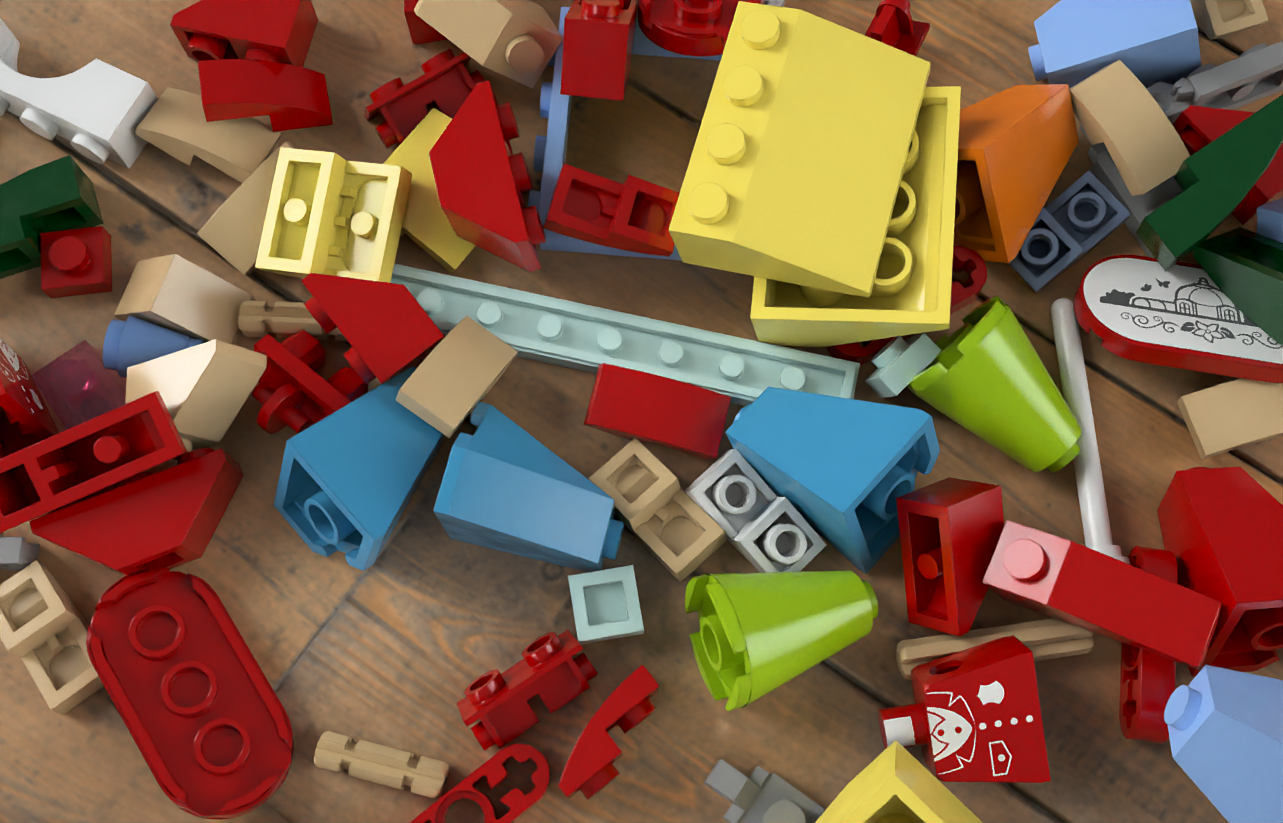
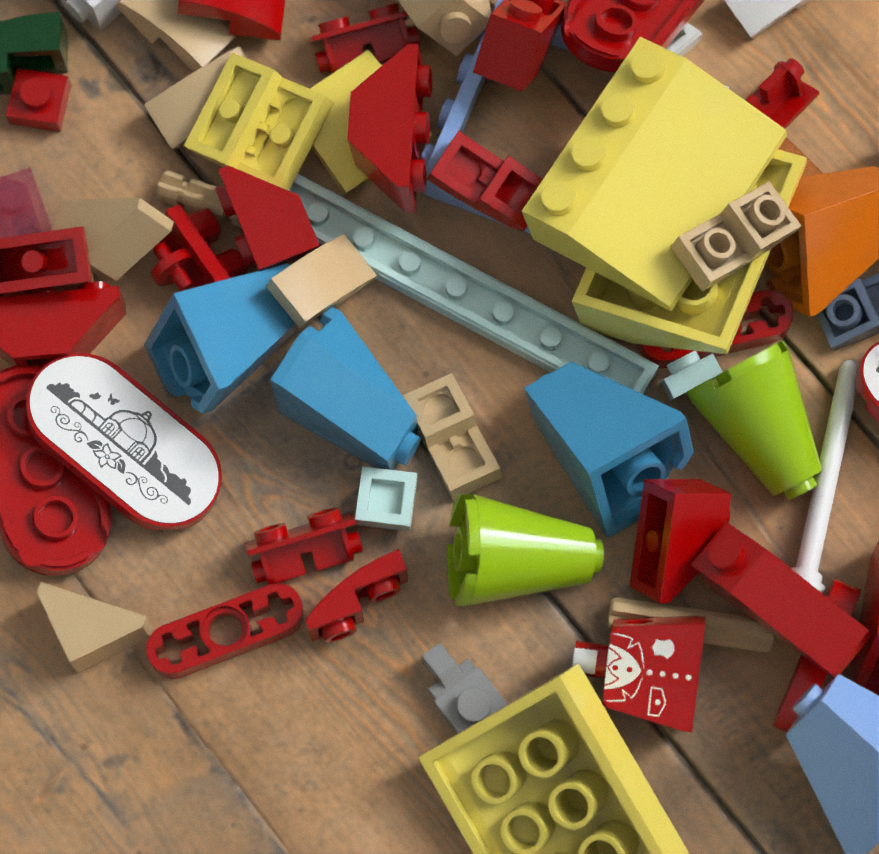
camera: 20 degrees right, 0 degrees up
(138, 342) = (75, 182): medium blue cone -> none
(183, 299) = (116, 156): tan slope -> none
(278, 630) = (123, 442): none -> white tile
(381, 764) = (173, 570): tan axle -> none
(657, 410) = (476, 356): red slope -> none
(753, 517) = (528, 464): white slope -> none
(918, 192) = (735, 236): none -> tan slope

